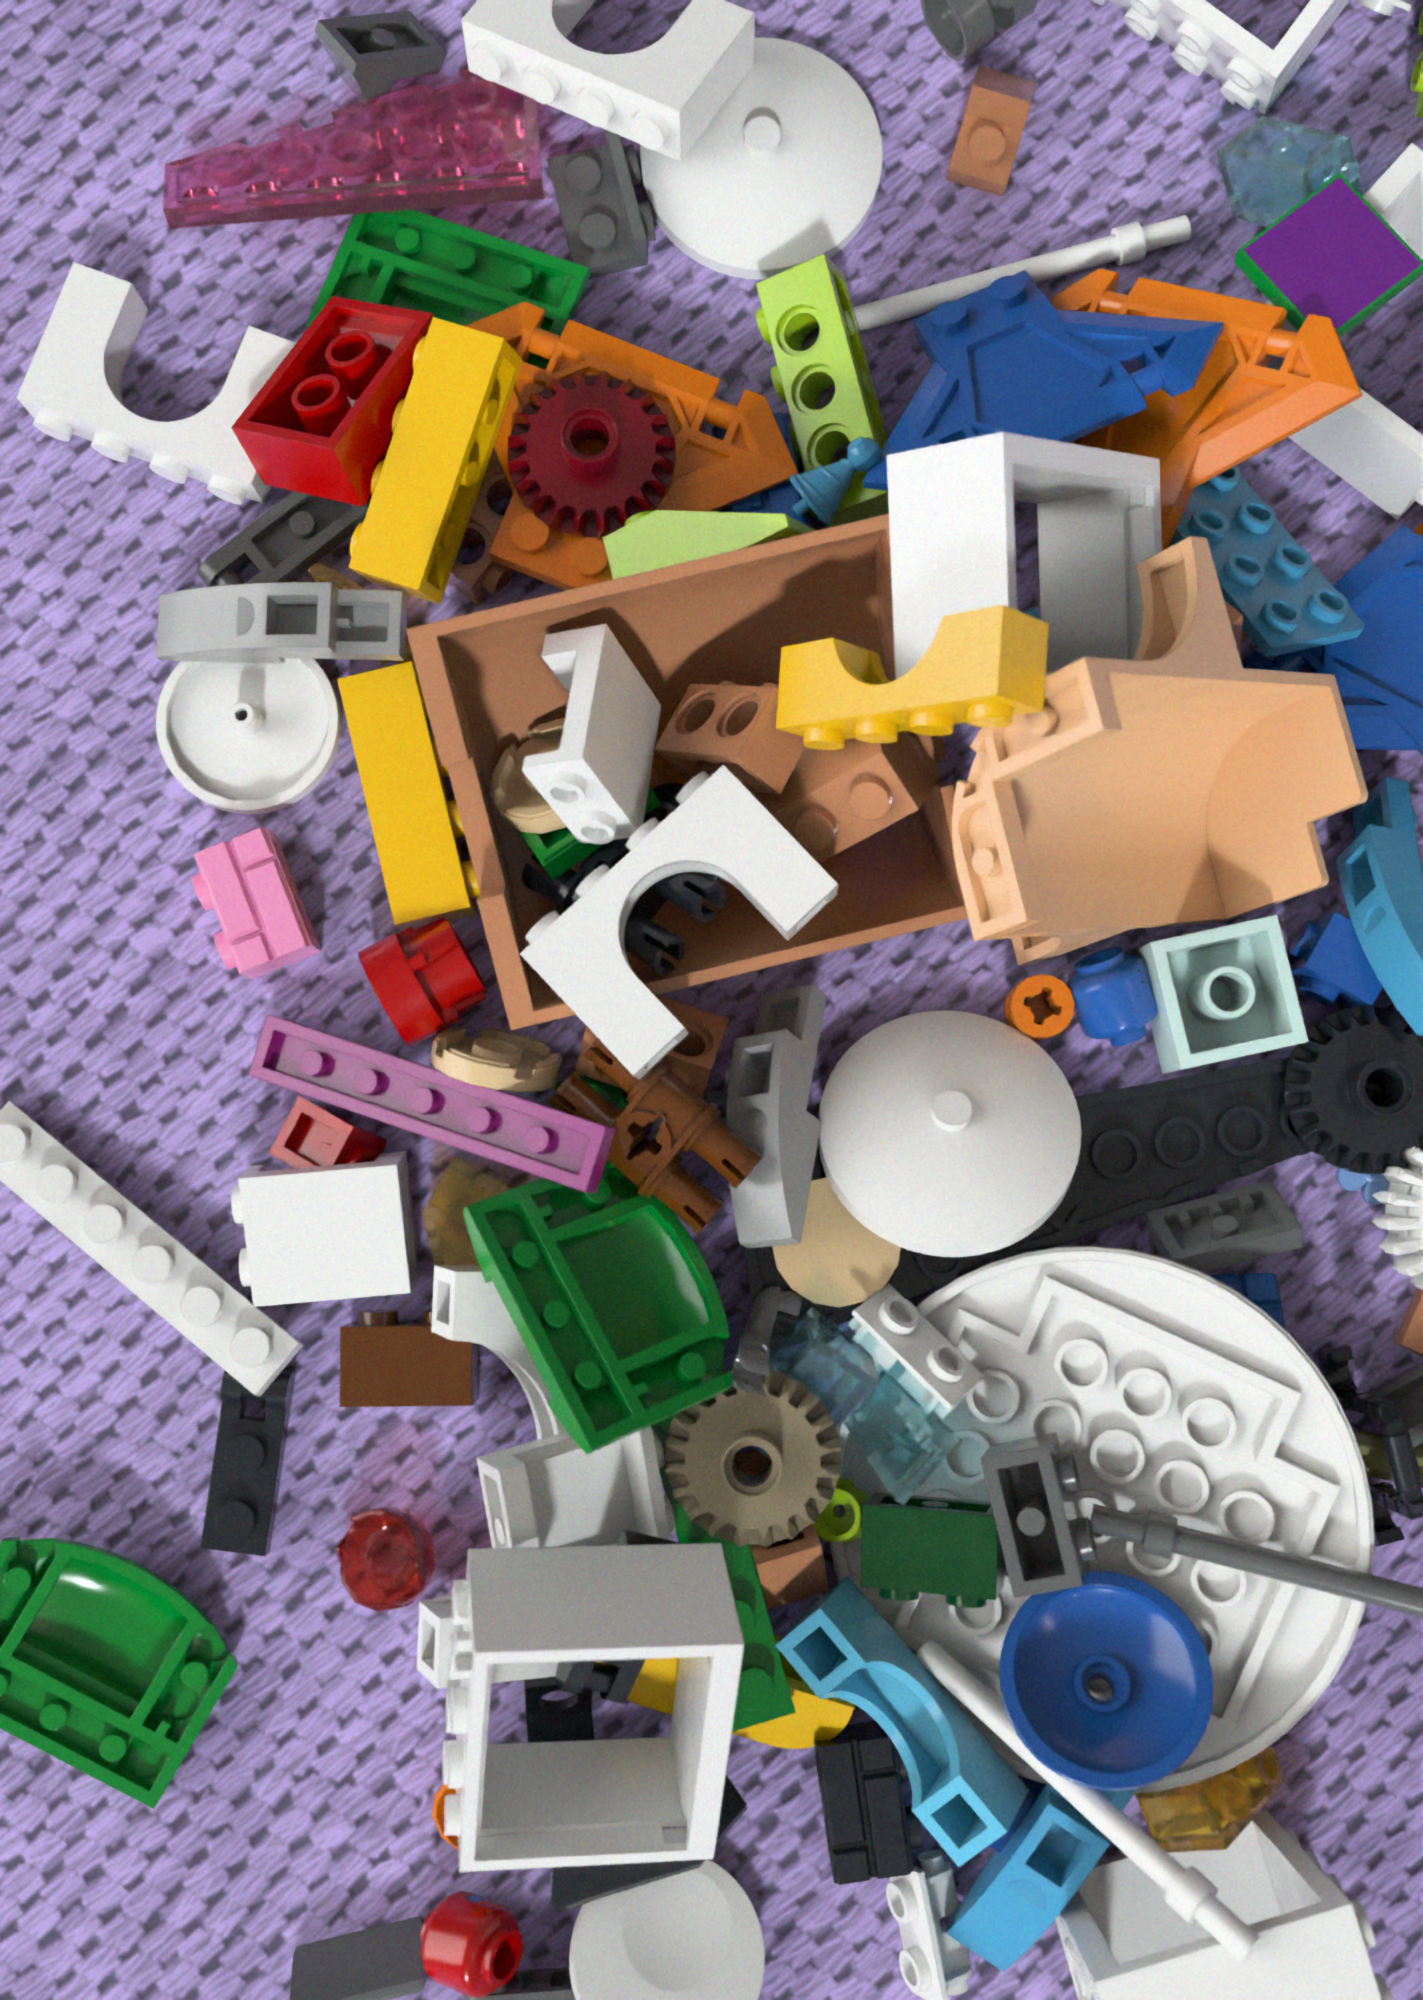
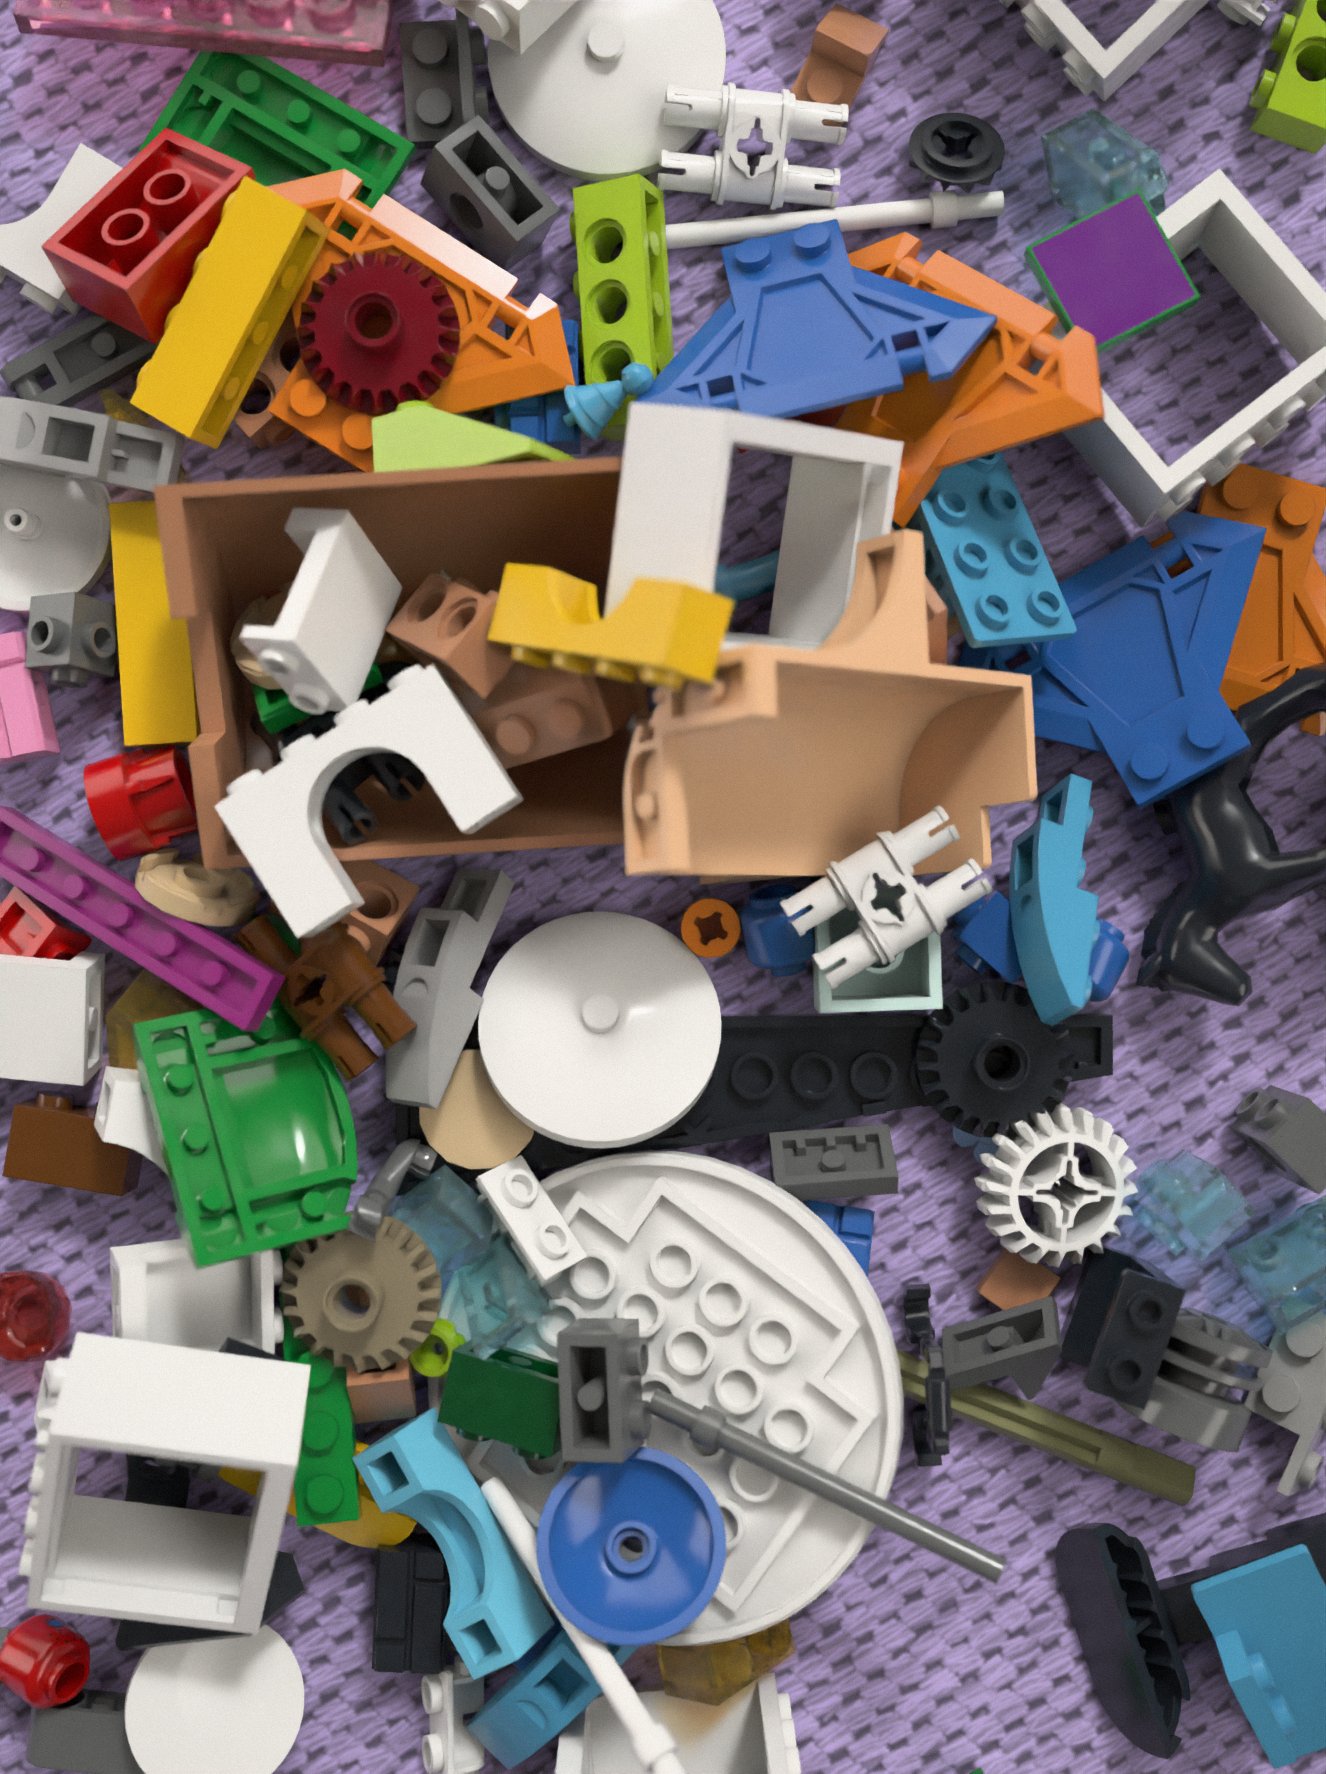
camera: 10 degrees right, 5 degrees up
(319, 825) = (71, 638): none -> dark grey brick
(671, 303) = (489, 194): none -> dark grey brick
(943, 187) = (777, 121): none -> white pin
(1114, 179) = (953, 135): none -> black gear
(1258, 947) = (918, 908): none -> white pin

